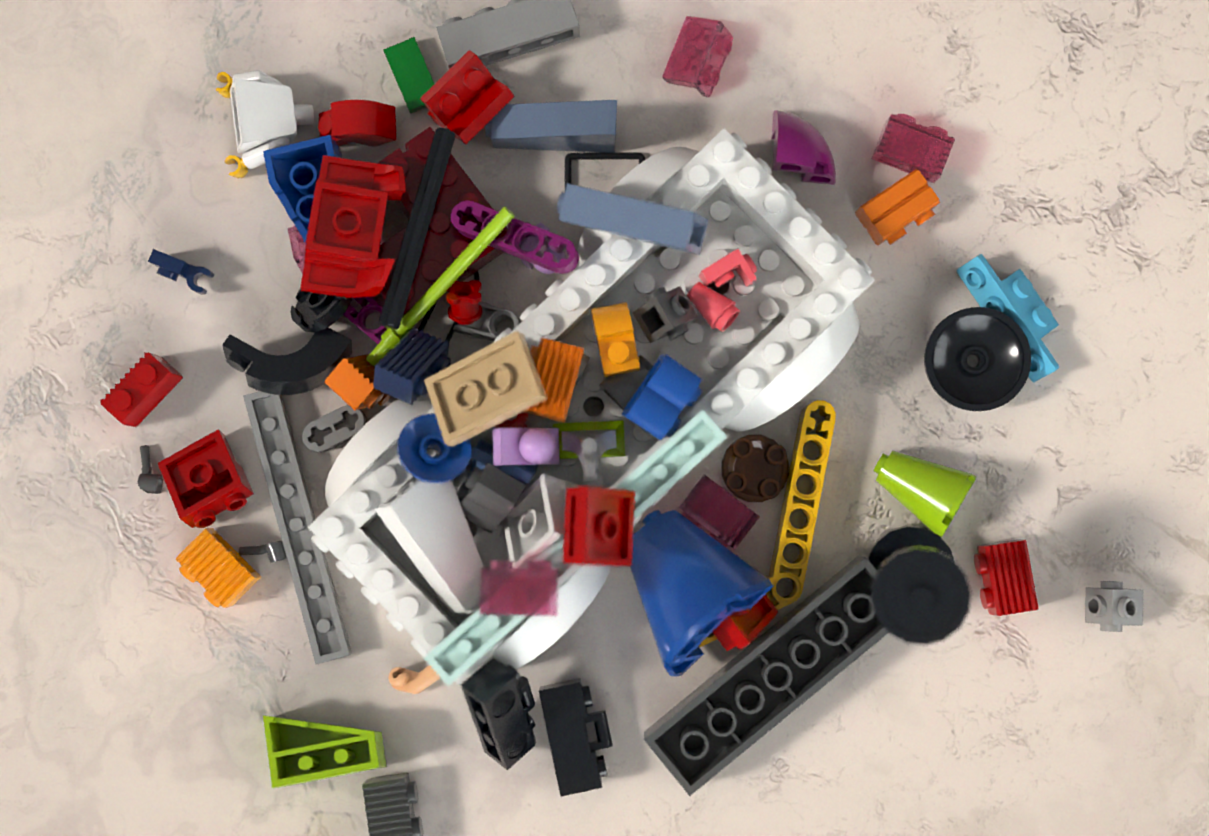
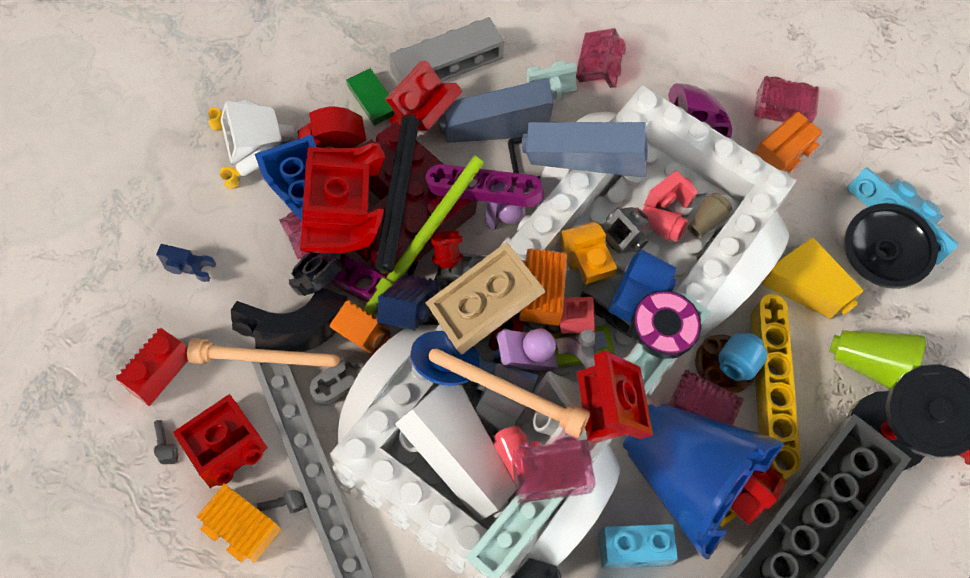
camera: 10 degrees left, 20 degrees down
(193, 378) = (201, 351): none -> light nougat piece
(492, 545) = (506, 442): none -> coral cone
(547, 542) = (570, 418): none -> light nougat piece
(588, 411) = (577, 315): none -> coral bracket
(613, 650) = (637, 546): none -> medium azure brick
(630, 84) = (561, 77): none -> light aqua hips
(672, 447) = (666, 324): none -> tile
(768, 303) = (709, 215): none -> dark tan cone
(768, 470) = (742, 356): none -> dark azure head
(880, 386) = (814, 280): none -> yellow slope

